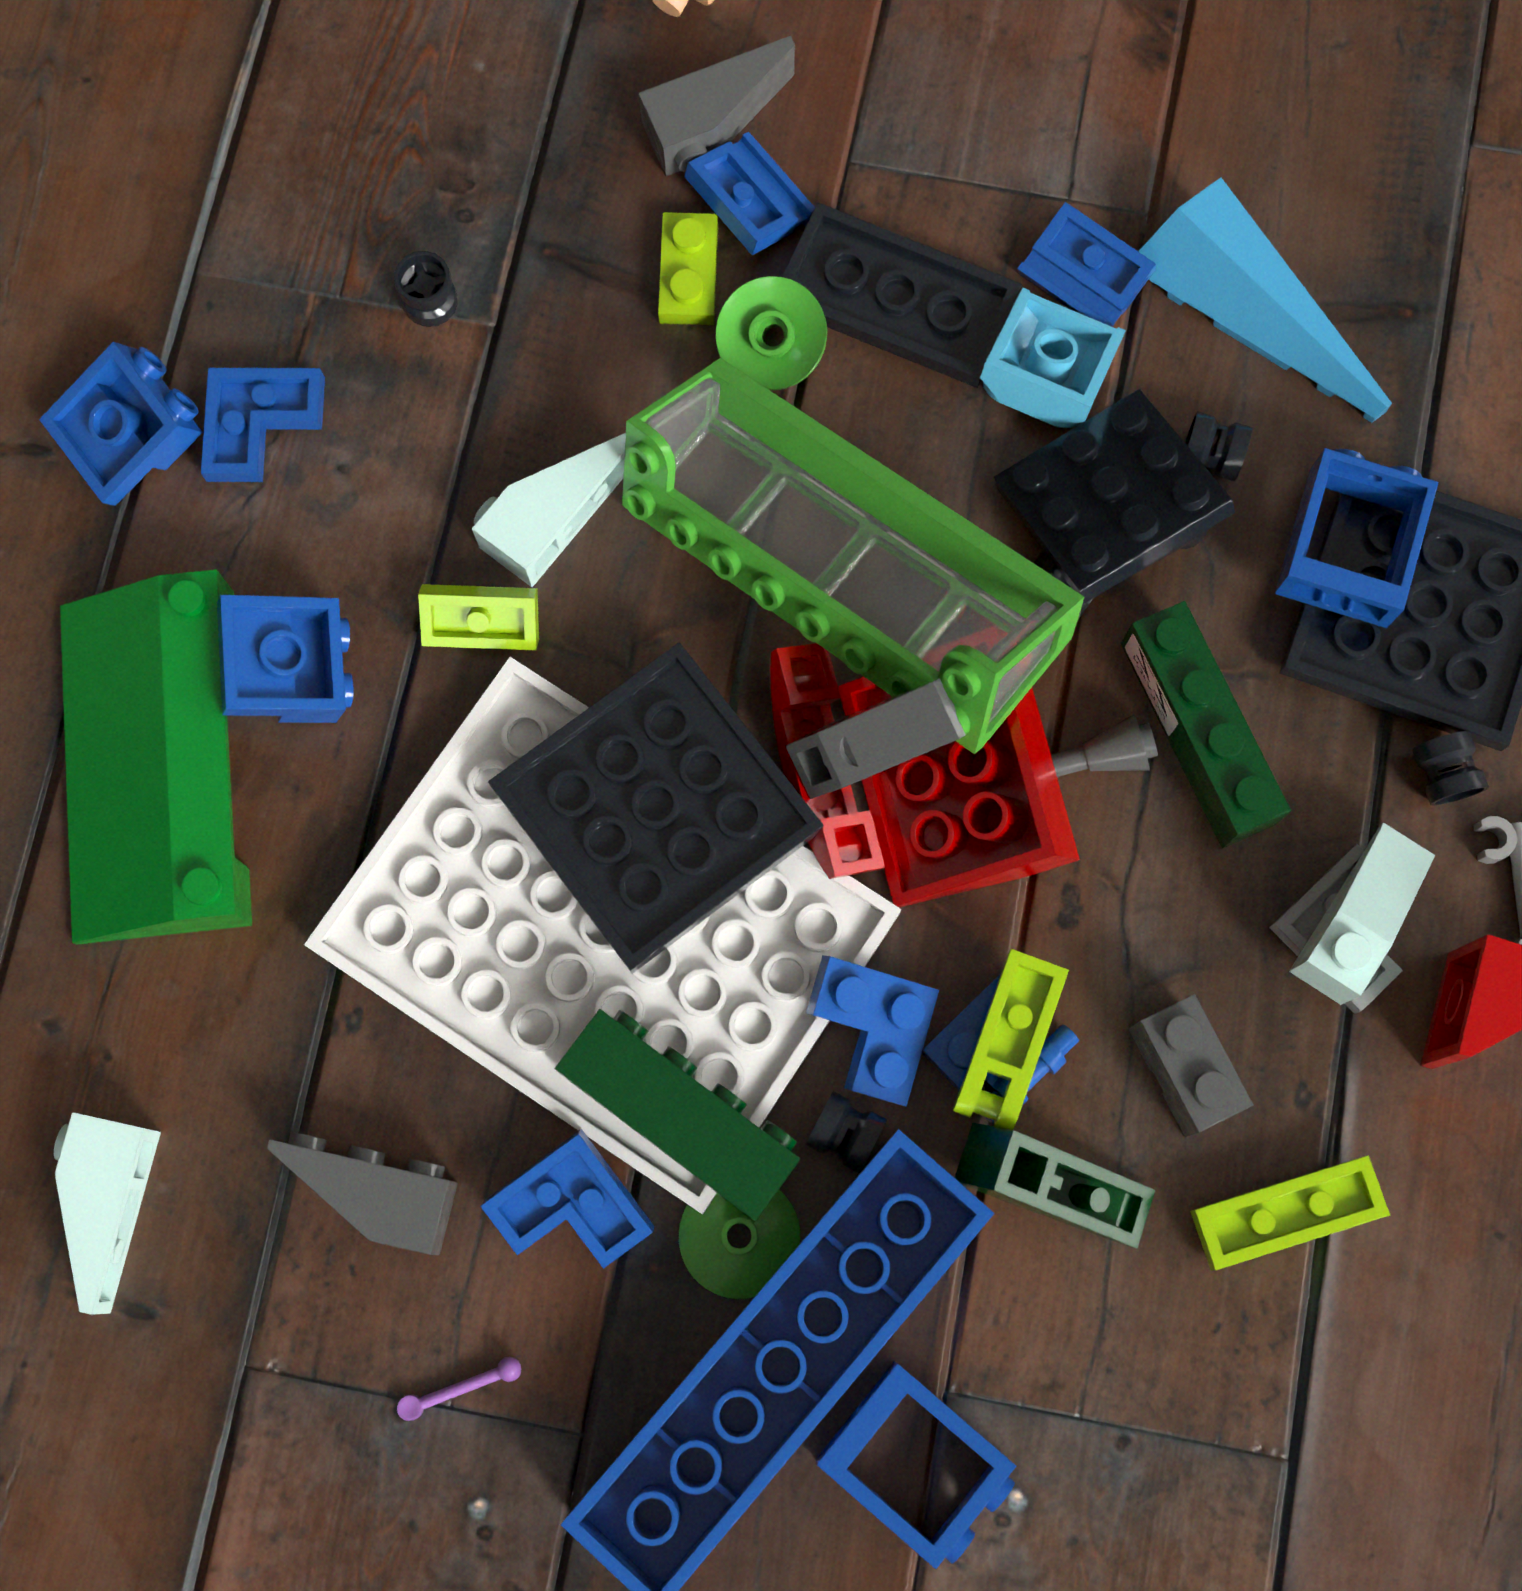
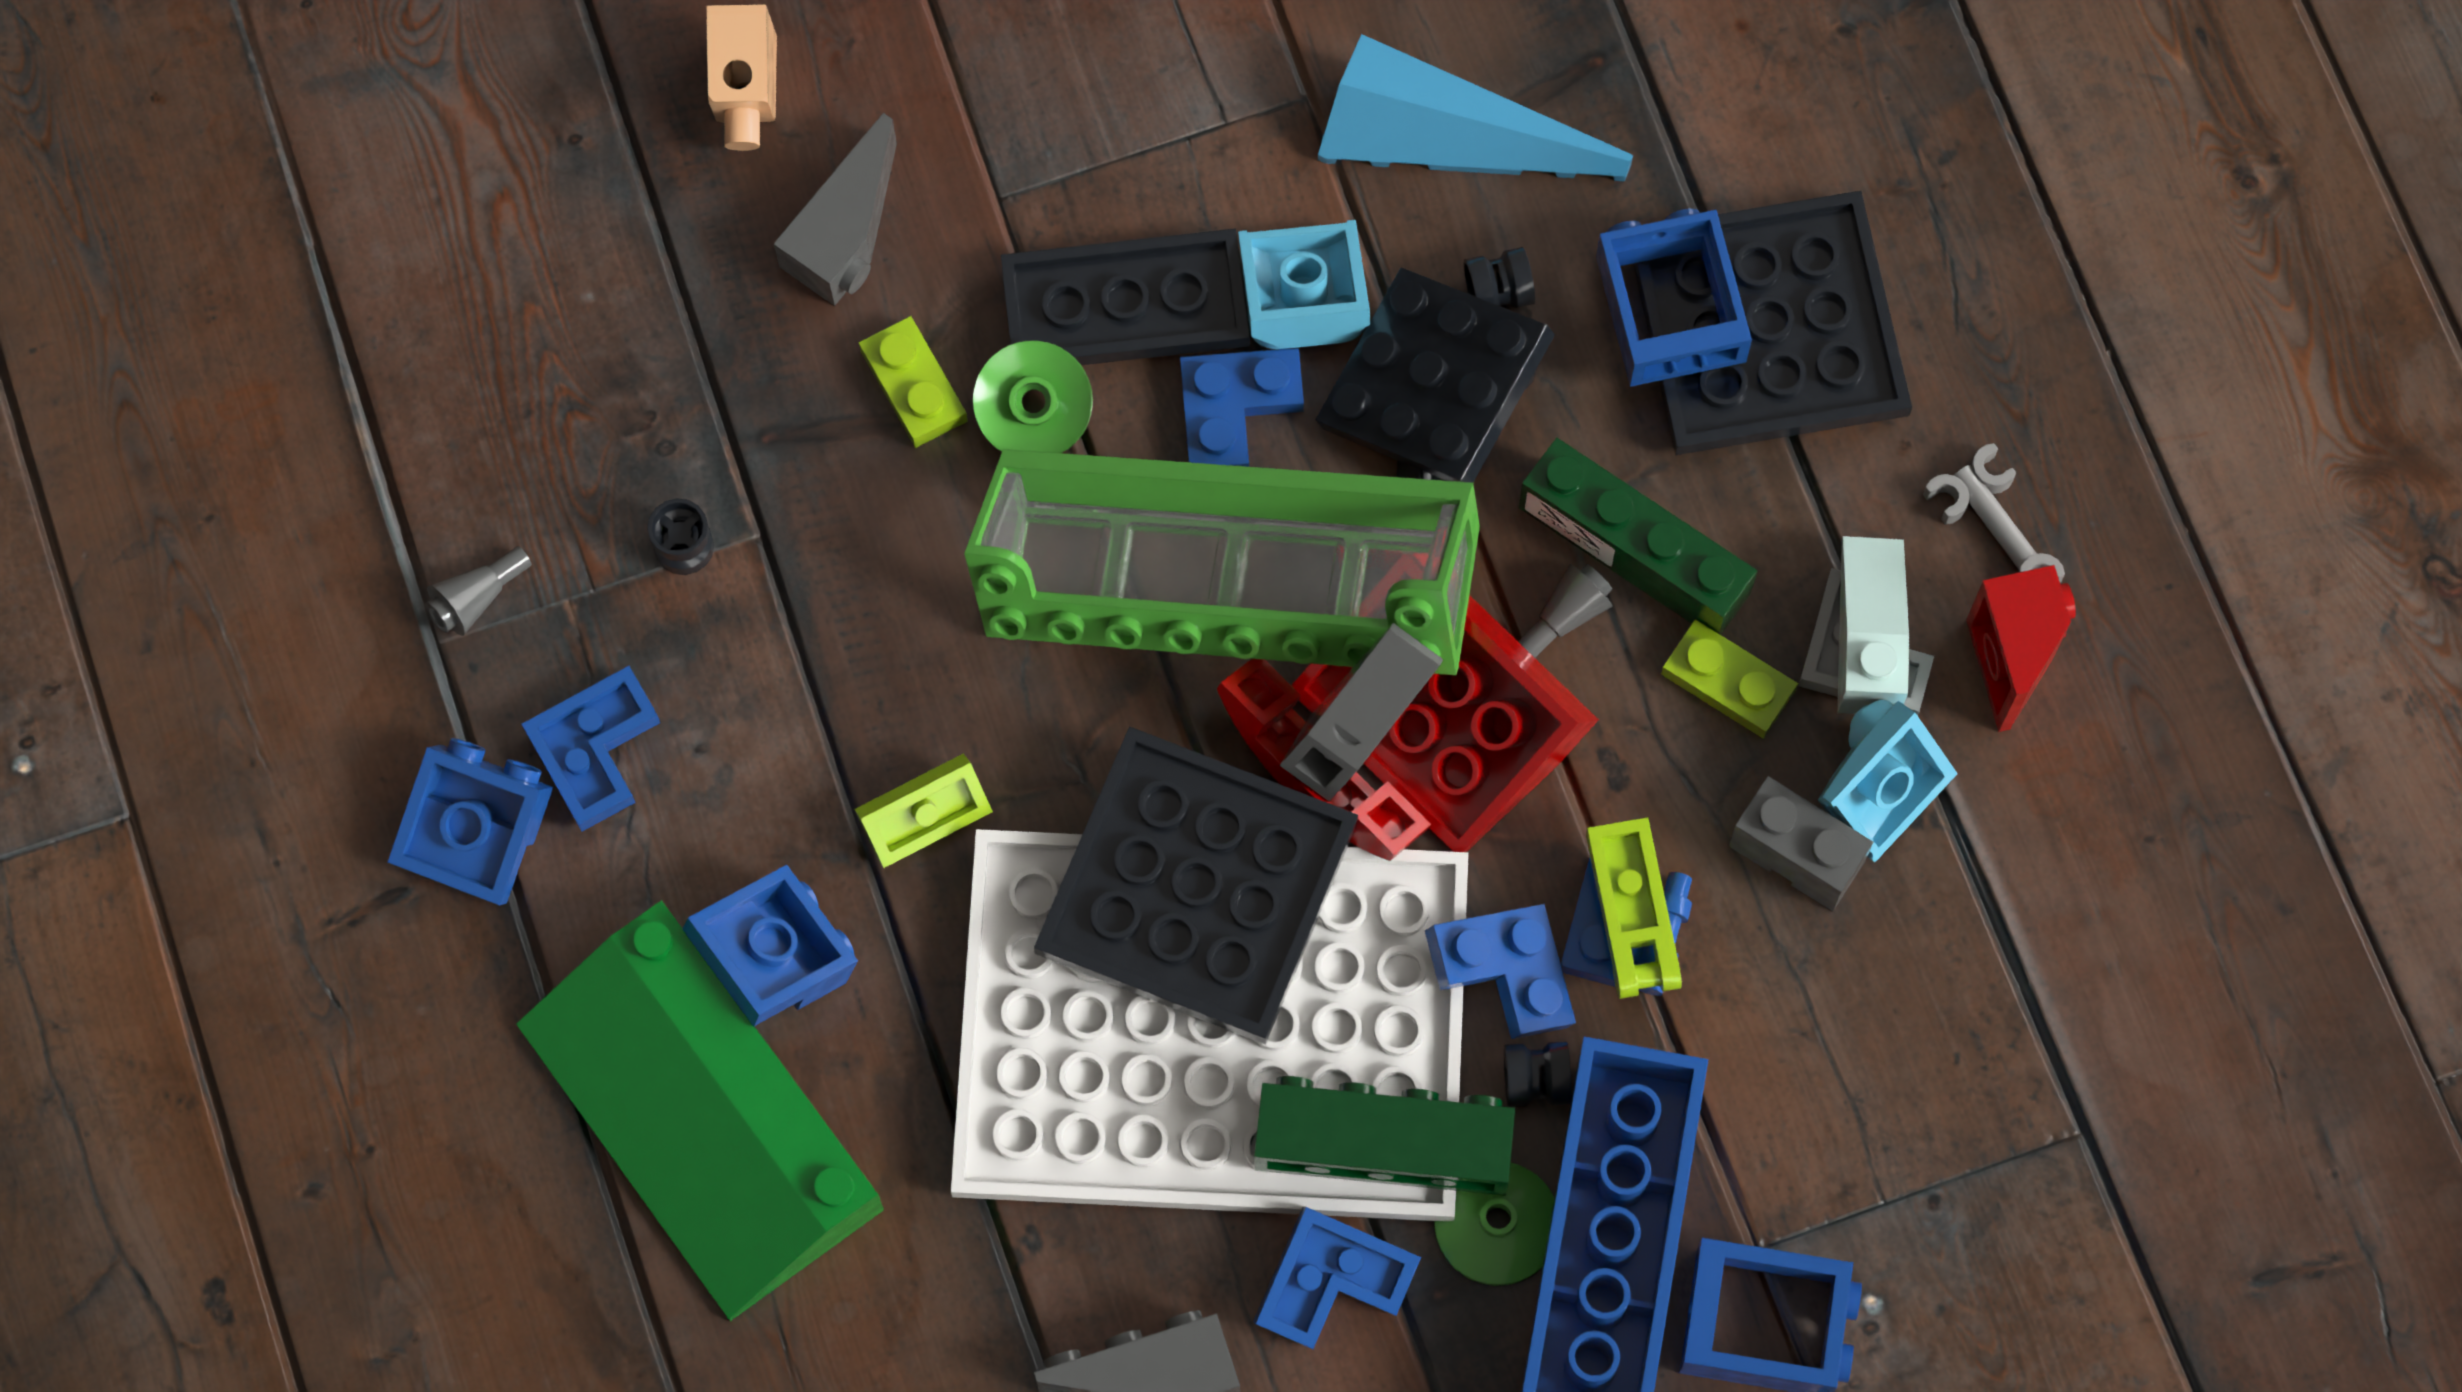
camera: 30 degrees left, 5 degrees down
(233, 244) = (463, 598): none -> dark grey cone
(546, 510) = (923, 679): light aqua slope -> none
(749, 193) = (929, 279): blue plate -> none
(936, 413) = (1226, 389): none -> blue plate
(1054, 1184) = (1744, 1012): dark green slope -> none
(1086, 267) = (1284, 180): blue plate -> none
(1213, 887) = (1729, 678): none -> lime plate
(1289, 1213) = (1959, 921): lime plate -> none
(1300, 1051) = (1886, 775): none -> medium azure slope
(1444, 763) = (1873, 456): black wheel -> none

